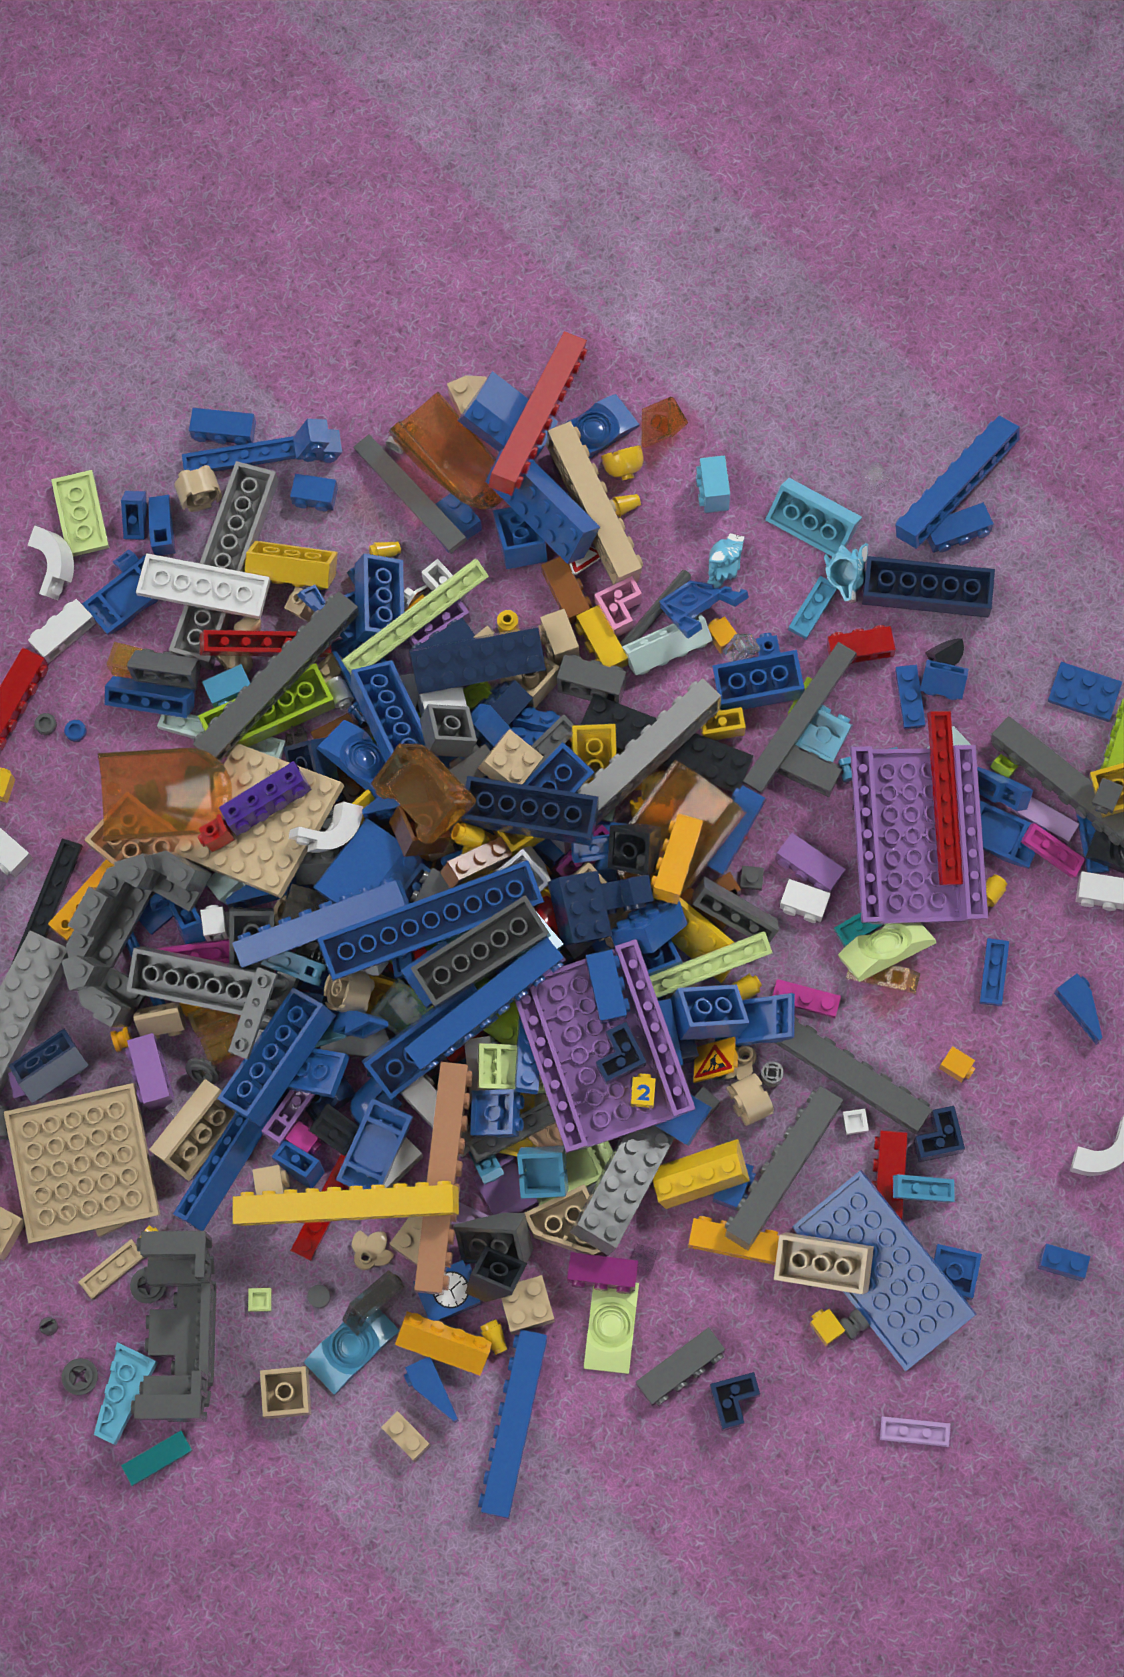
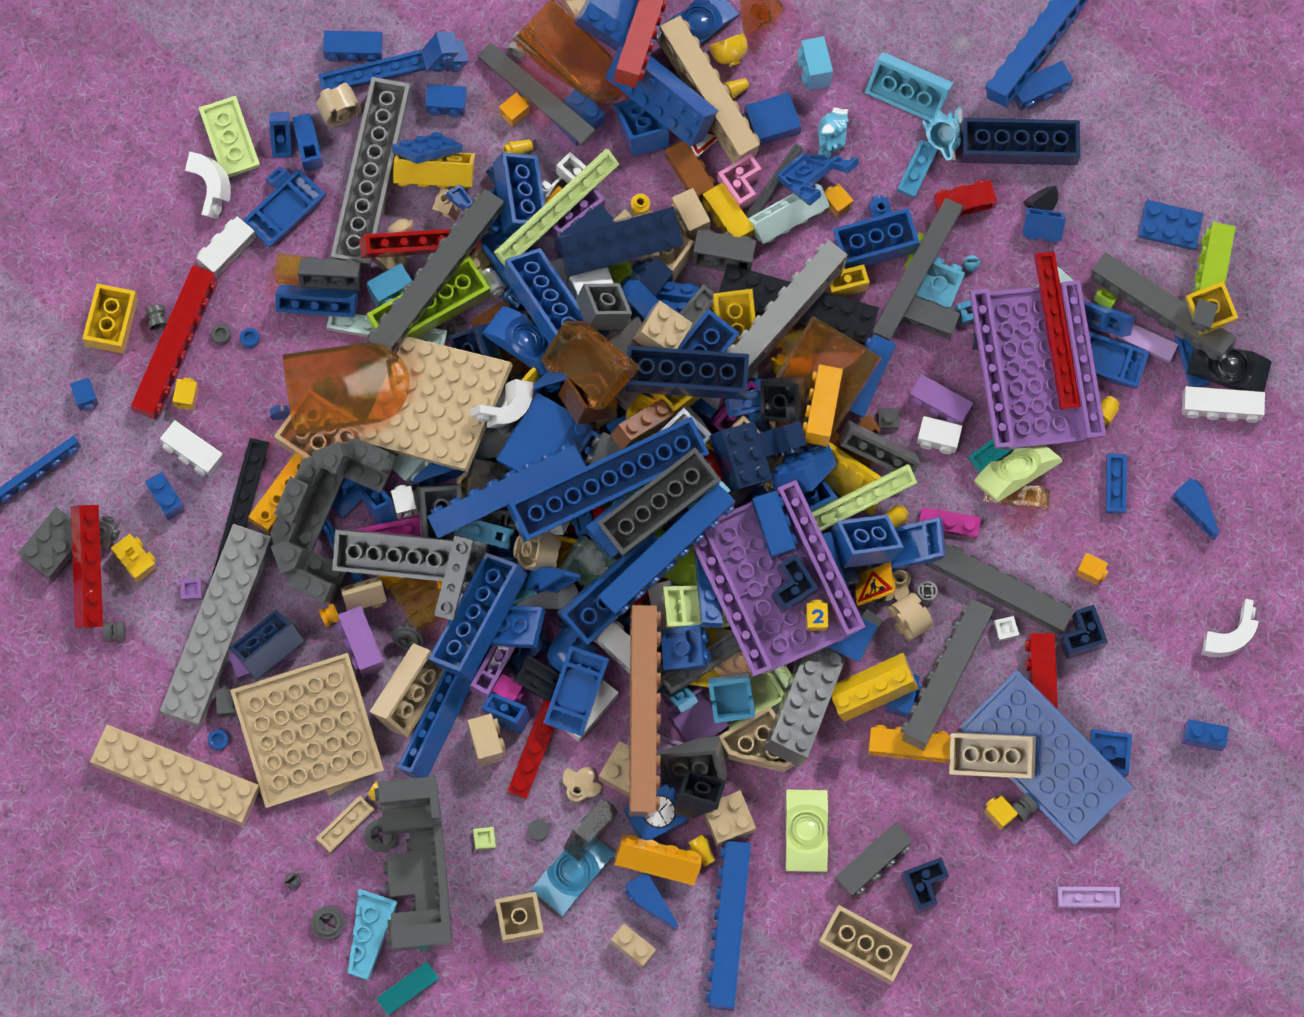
camera: 15 degrees left, 0 degrees up
(94, 813) = (279, 412): none -> blue tile
(203, 586) = (356, 194): white plate -> none
(215, 834) = (399, 419): red brick -> none
(265, 798) = (442, 383): dark purple brick -> none
(285, 542) = (427, 147): none -> blue plate
(346, 1204) = (559, 741): yellow brick -> none
(386, 507) = (514, 109): none -> light orange brick
(468, 835) = (633, 399): yellow brick -> none
(602, 1272) = (794, 783): magenta brick -> none
(659, 1461) = (864, 945): none -> tan brick
(661, 540) = (773, 118): none -> blue brick
(741, 647) = (856, 210): clear brick -> none
(863, 719) = (972, 266): none -> medium azure hinge
(910, 696) = (1014, 242): blue plate -> none
(923, 1188) = (1074, 681): dark azure plate -> none
(1053, 850) = (1157, 369): dark pink plate -> none

